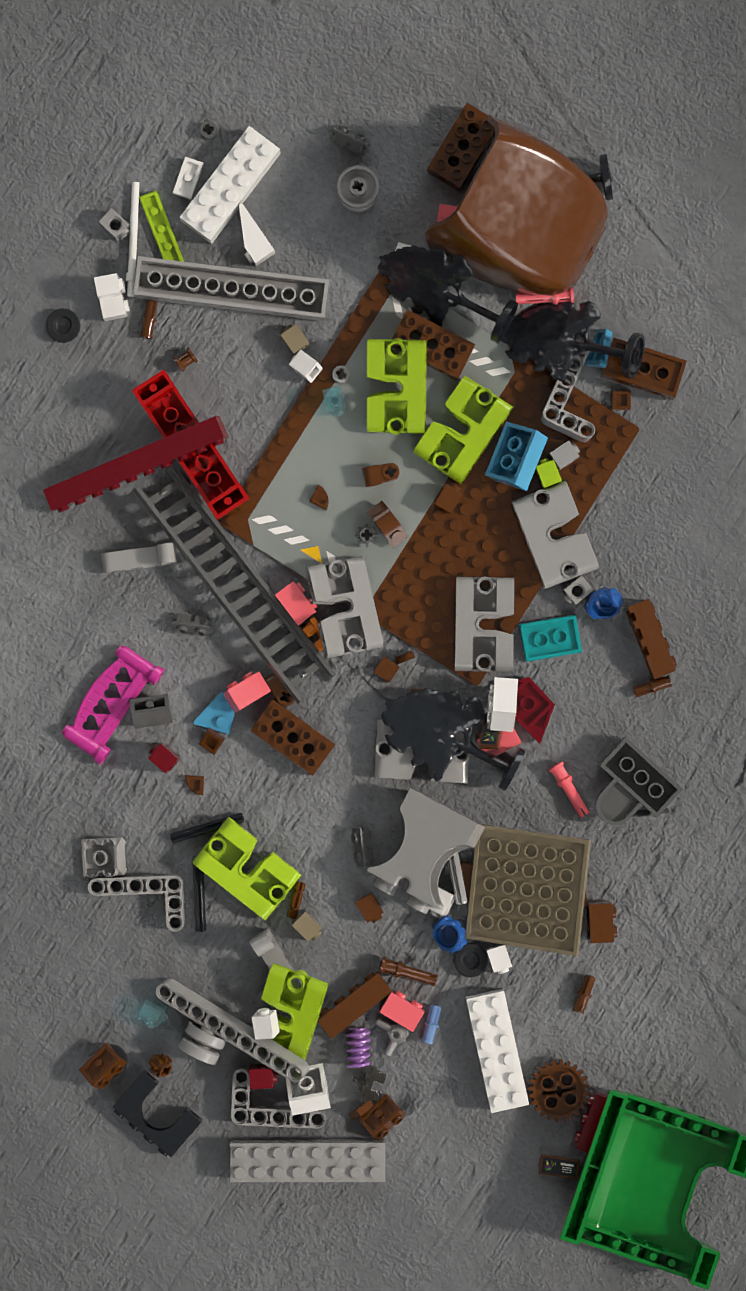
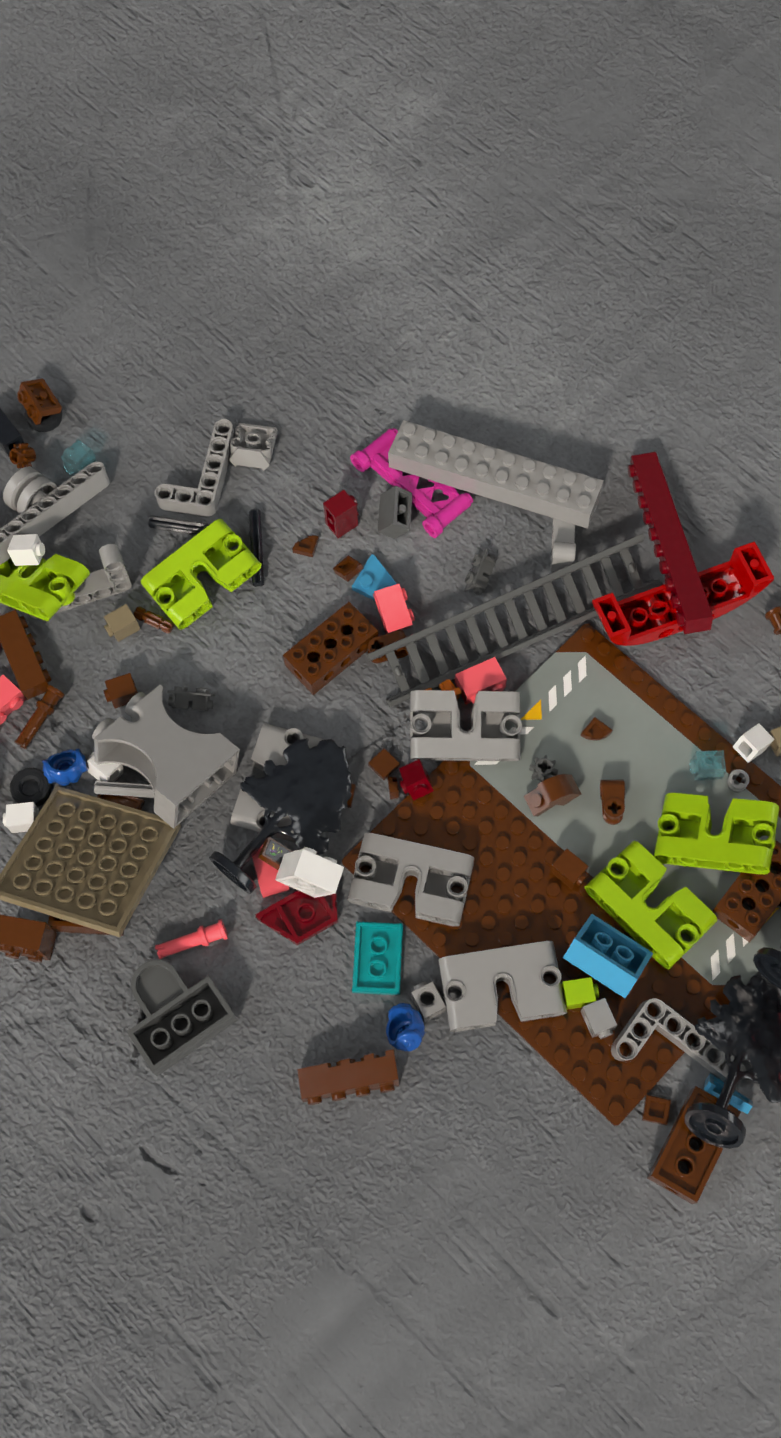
camera: 105 degrees right, 20 degrees down
(98, 629) = (495, 474): none -> light grey brick
(399, 638) = (415, 780): none -> dark red brick
(652, 686) = (289, 1069): reddish brown axle -> none

